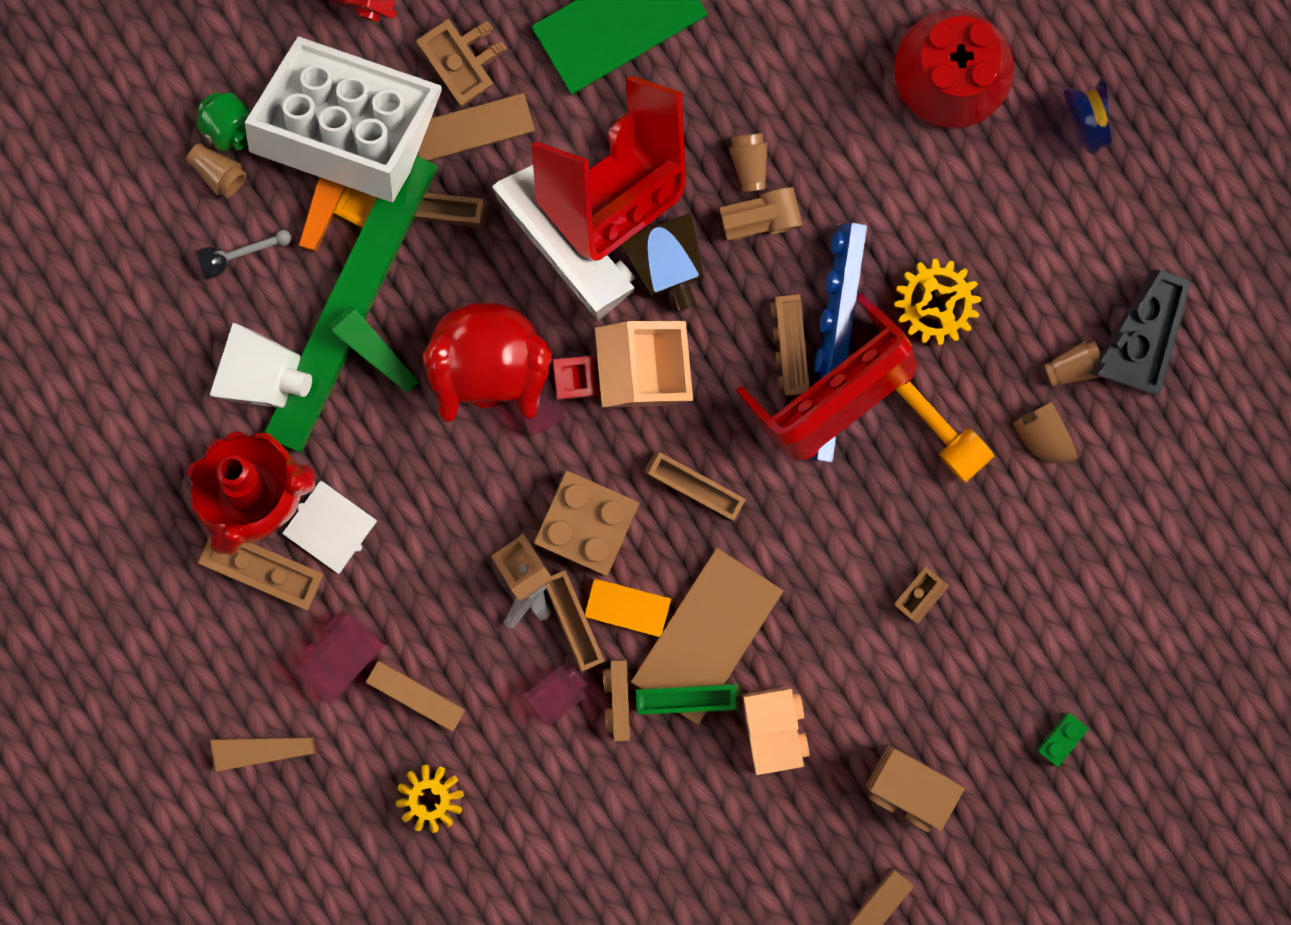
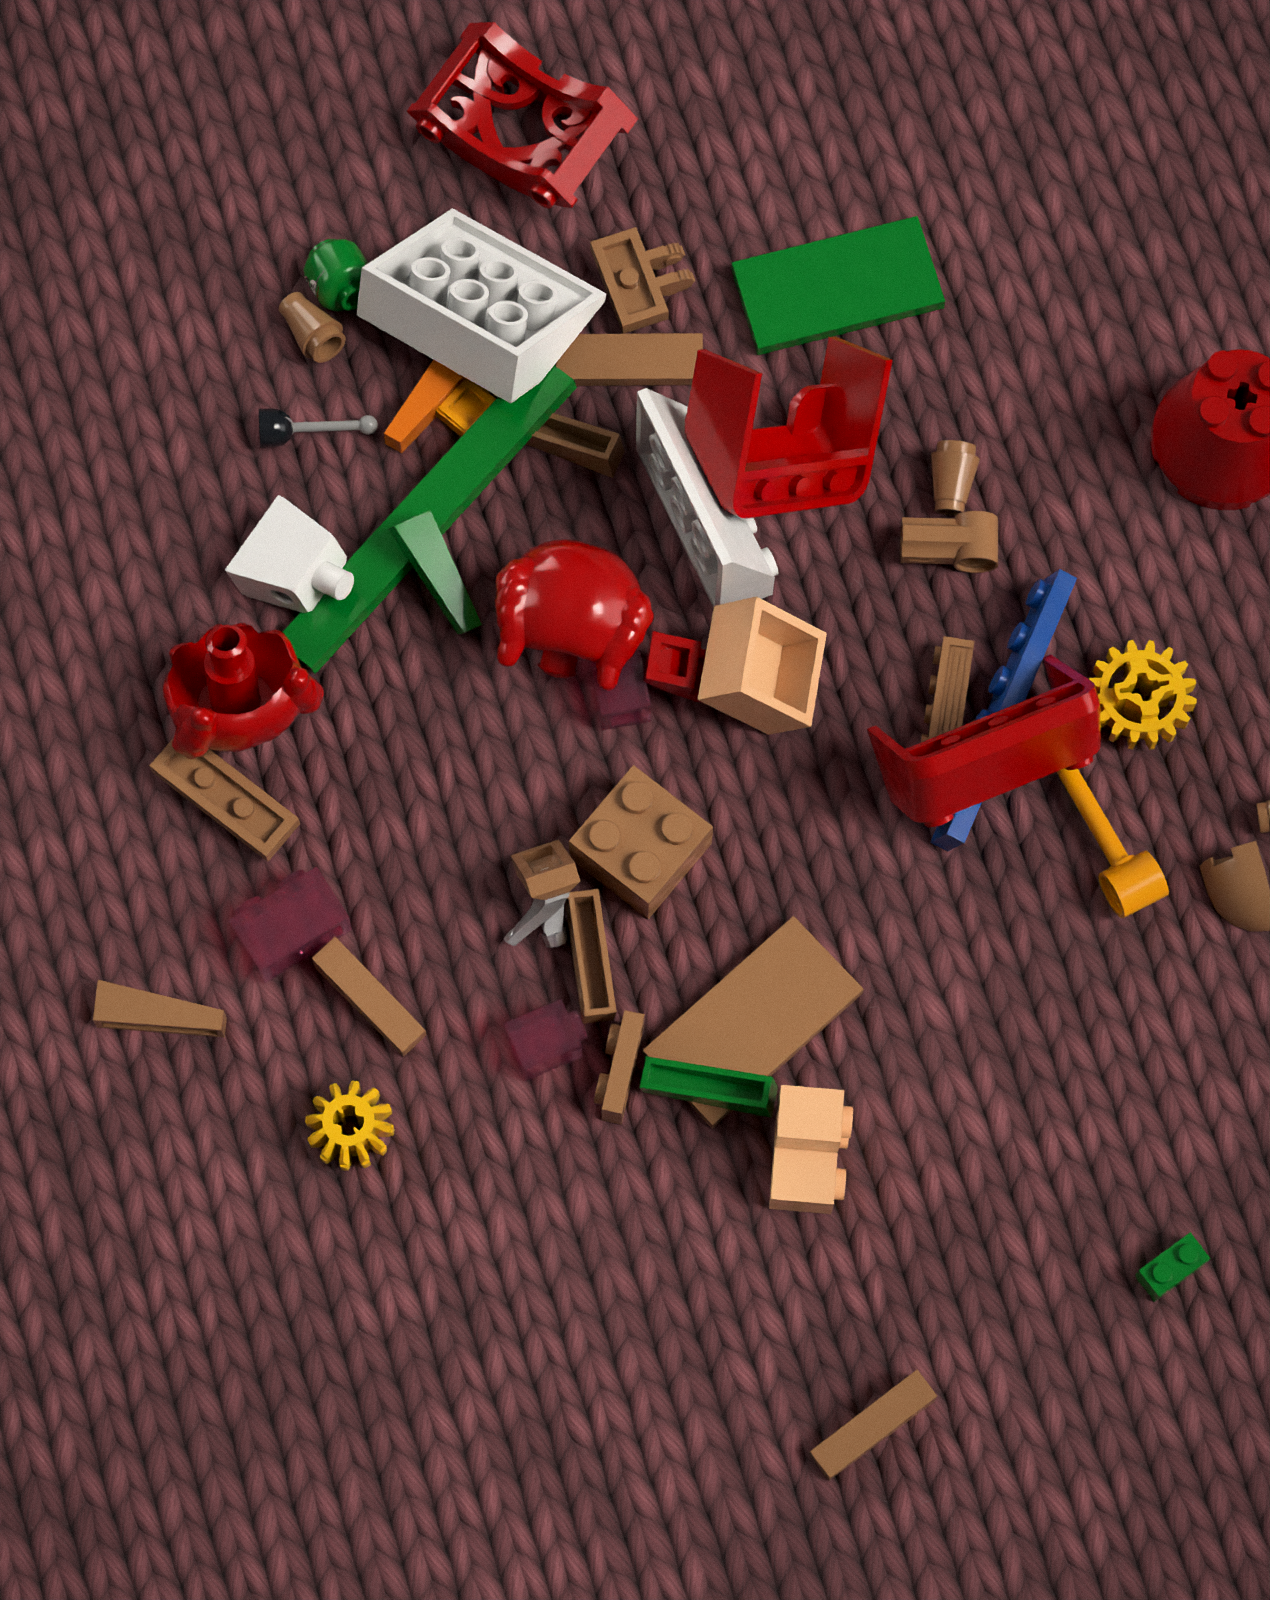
camera: 15 degrees right, 15 degrees down
(329, 527) = (323, 771): white piece -> none
(627, 607) = (662, 961): light orange tile -> none
(667, 260) = (821, 561): torso -> none
(694, 485) = (785, 835): medium nougat piece -> none
(914, 788) = (967, 1268): medium nougat piece -> none
(921, 595) = (1036, 1038): medium nougat piece -> none

